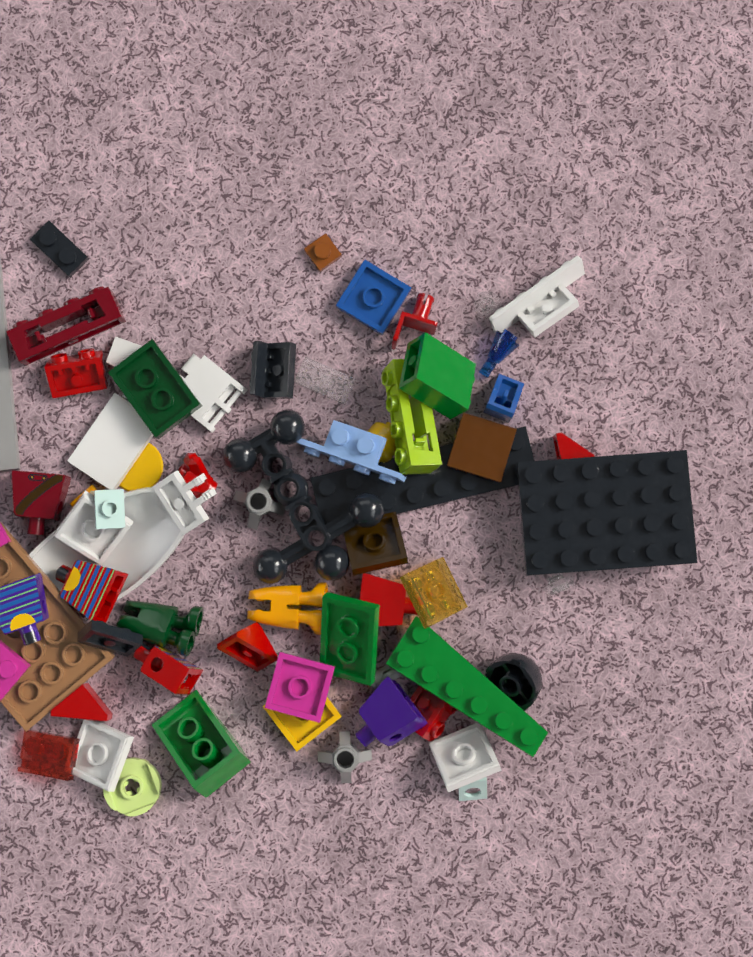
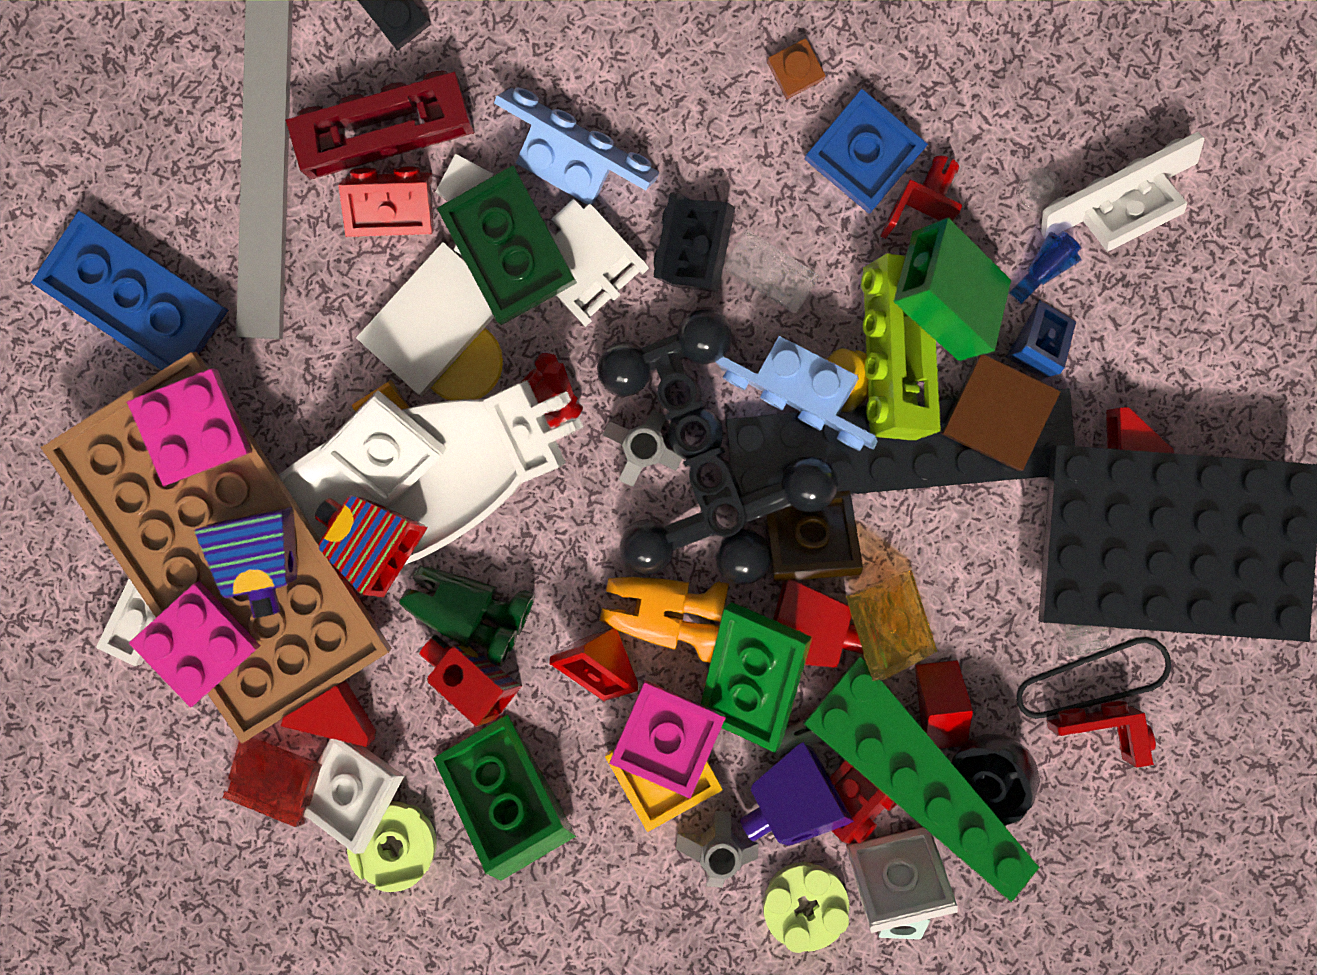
camera: 10 degrees right, 5 degrees up
(38, 497) = (304, 389): dark red torso -> none
(109, 508) = (411, 424): light aqua bracket -> none
(110, 638) = (386, 623): black plate -> none
(188, 326) = (568, 153): none -> light blue bracket
(404, 803) = (829, 915): none -> yellowish green plate
(476, 640) = (943, 703): none -> red slope
(580, 622) = (1163, 678): none -> black piece
(603, 642) = (1134, 733): none -> red bracket

